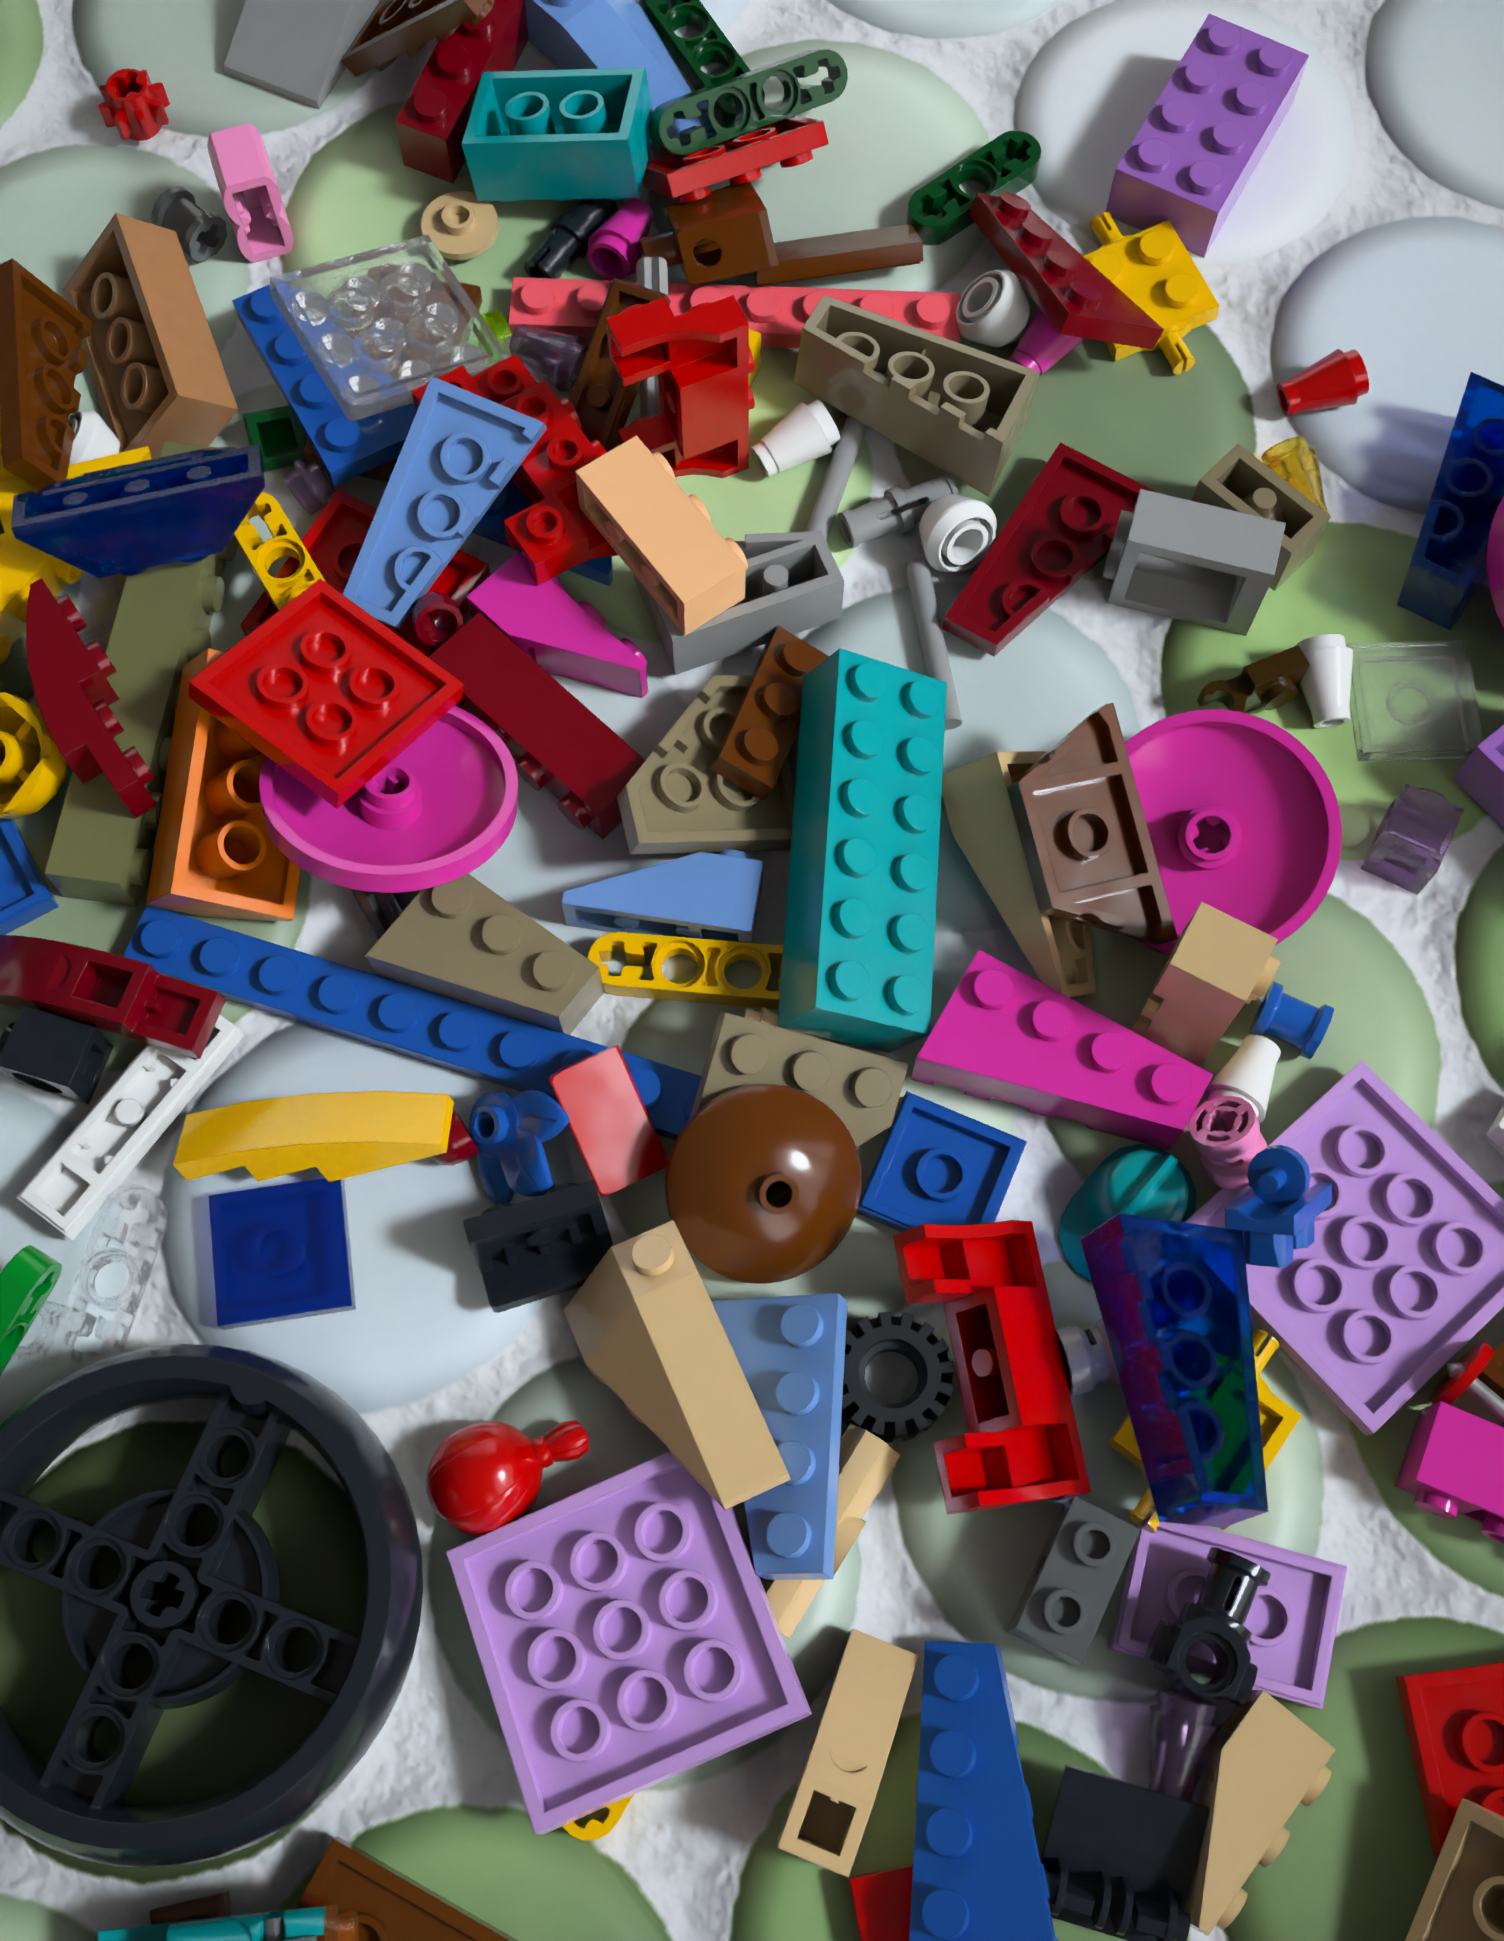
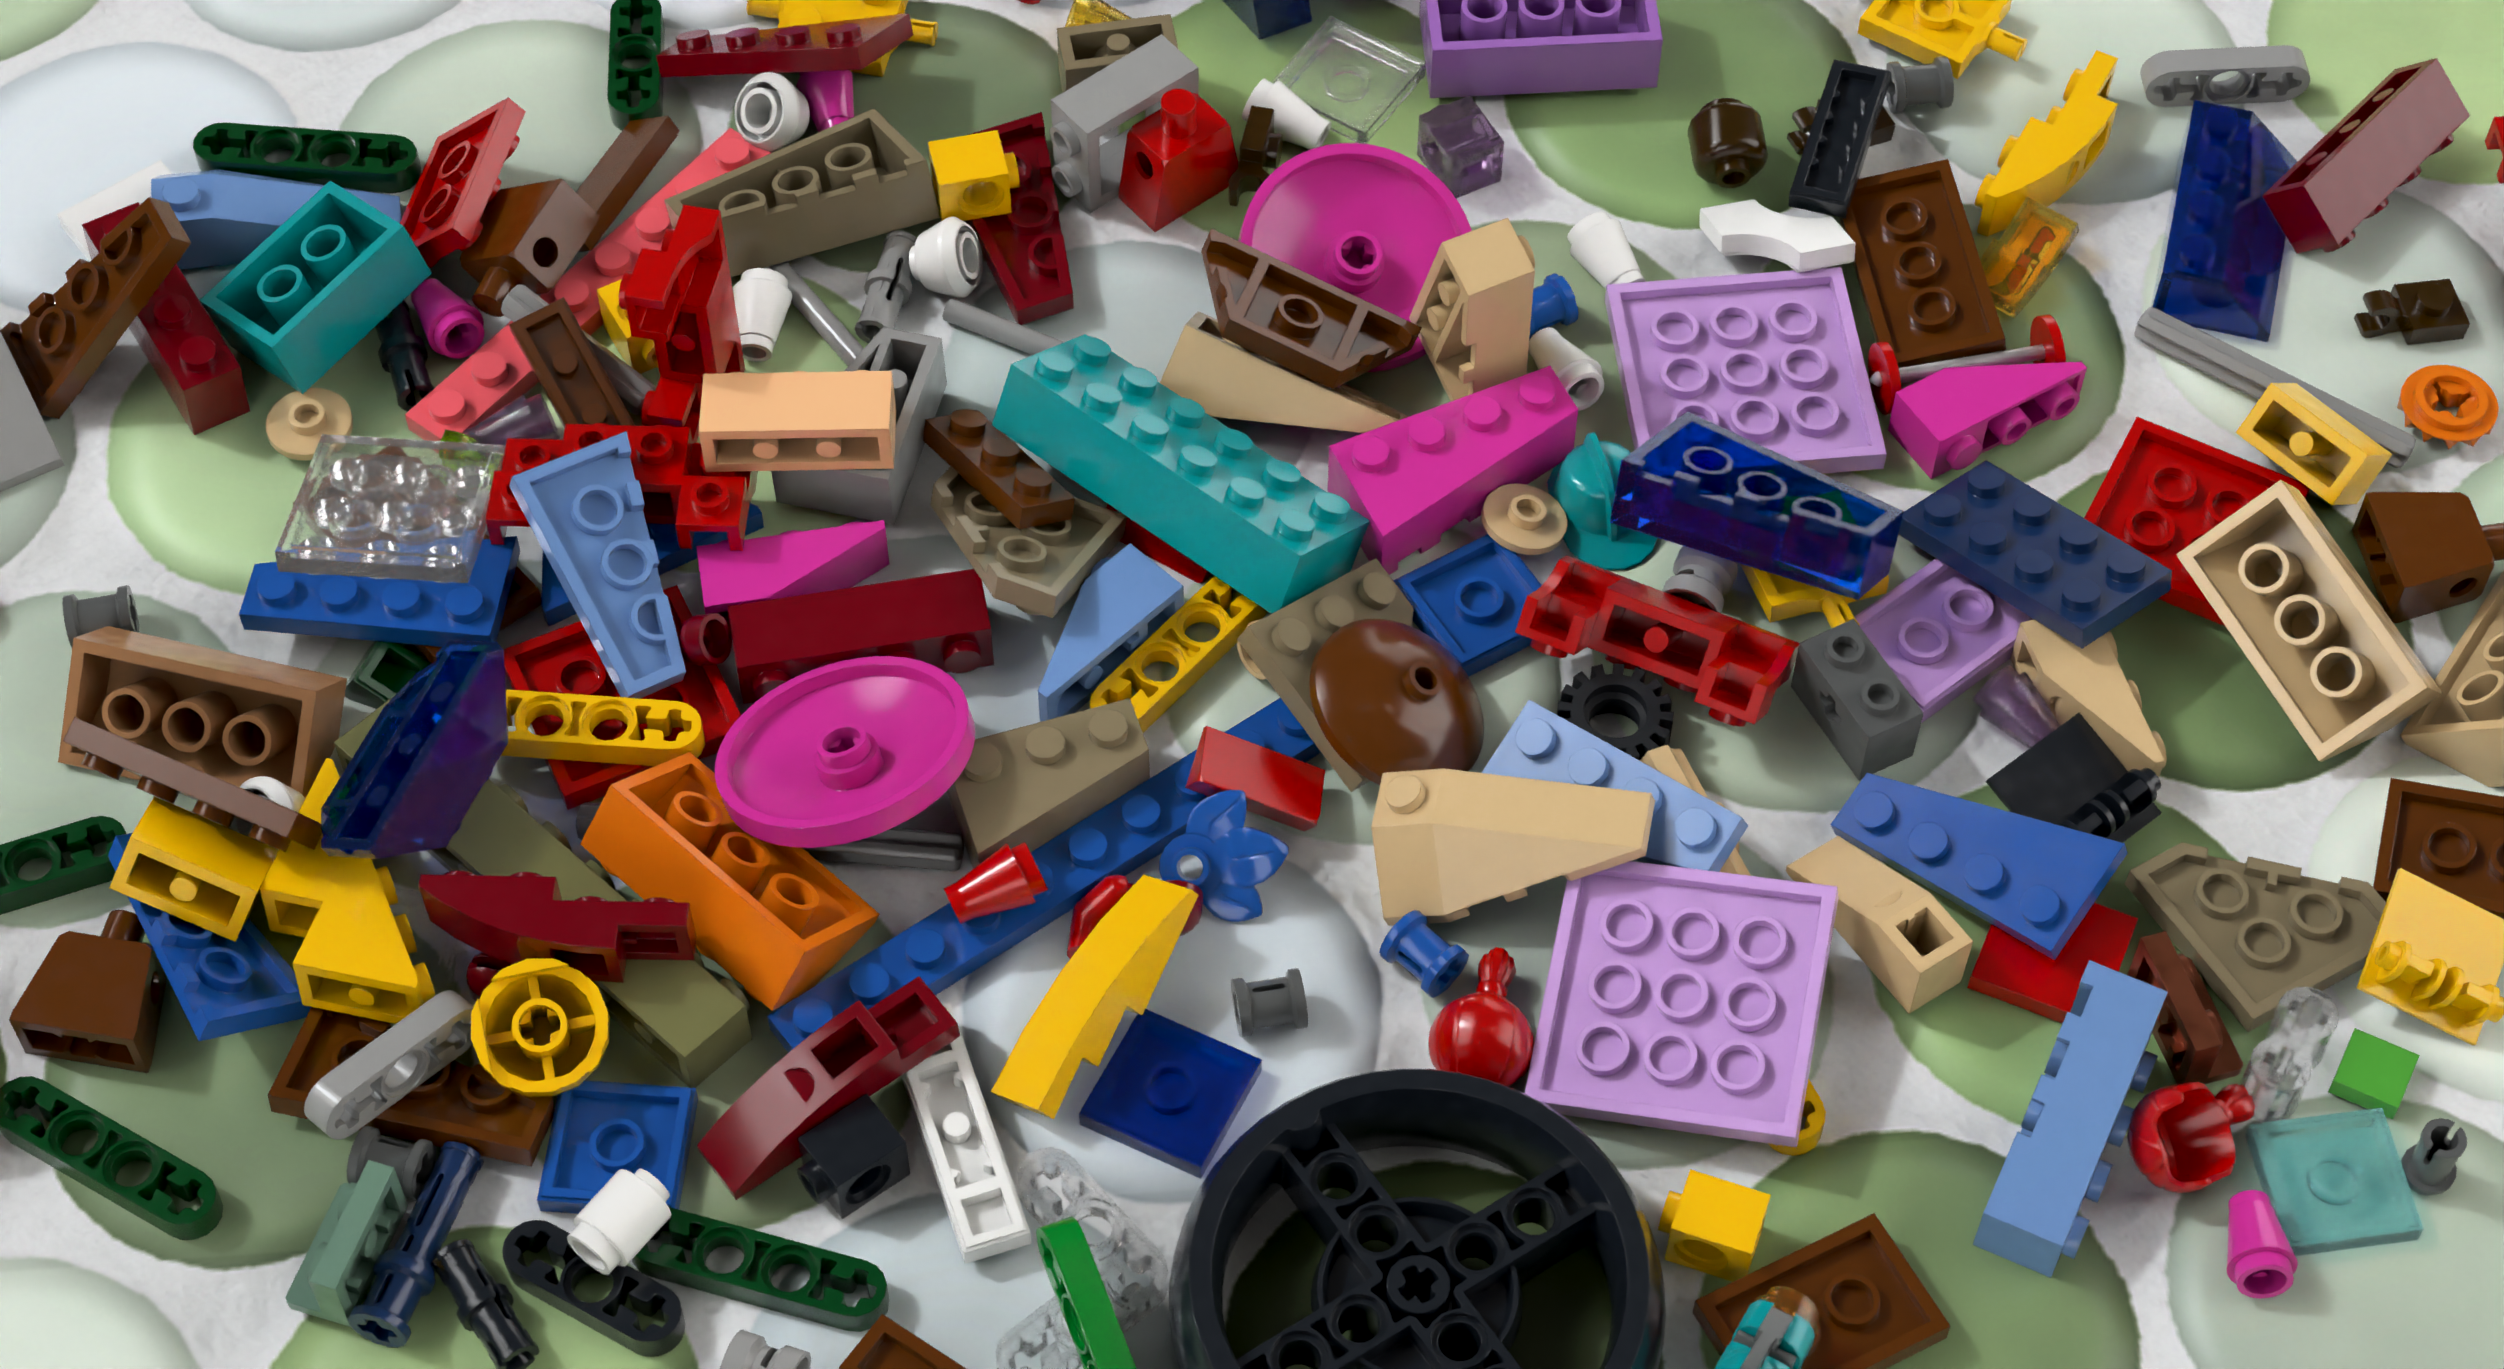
camera: 55 degrees left, 15 degrees down
(250, 192) = (138, 540): bright pink brick -> none
(326, 692) = (726, 729): red plate -> none
(356, 991) = (997, 884): none -> red cone
(406, 1275) = (1269, 1002): none -> dark grey bush
(410, 1076) = (1093, 908): none -> red arm
(423, 1806) = (1714, 1225): none -> yellow brick
(539, 1244) = (1323, 887): black bracket -> none
(539, 1370) = (1423, 953): none -> blue bush
(747, 95) = (404, 139): dark green beam -> none
(1036, 489) = (972, 176): none -> yellow brick
(1053, 1157) = (1524, 519): none -> tan piece
(1196, 626) = (1176, 159): none -> red torso
(1217, 1623) = (1958, 629): black connector -> none
(1227, 1138) = (1607, 393): bright pink wheel -> none
(1278, 1207) = (1683, 378): blue hips -> none
(1360, 1656) = (2035, 553): none -> dark blue plate
(1401, 1036) = (1604, 250): none -> white cone

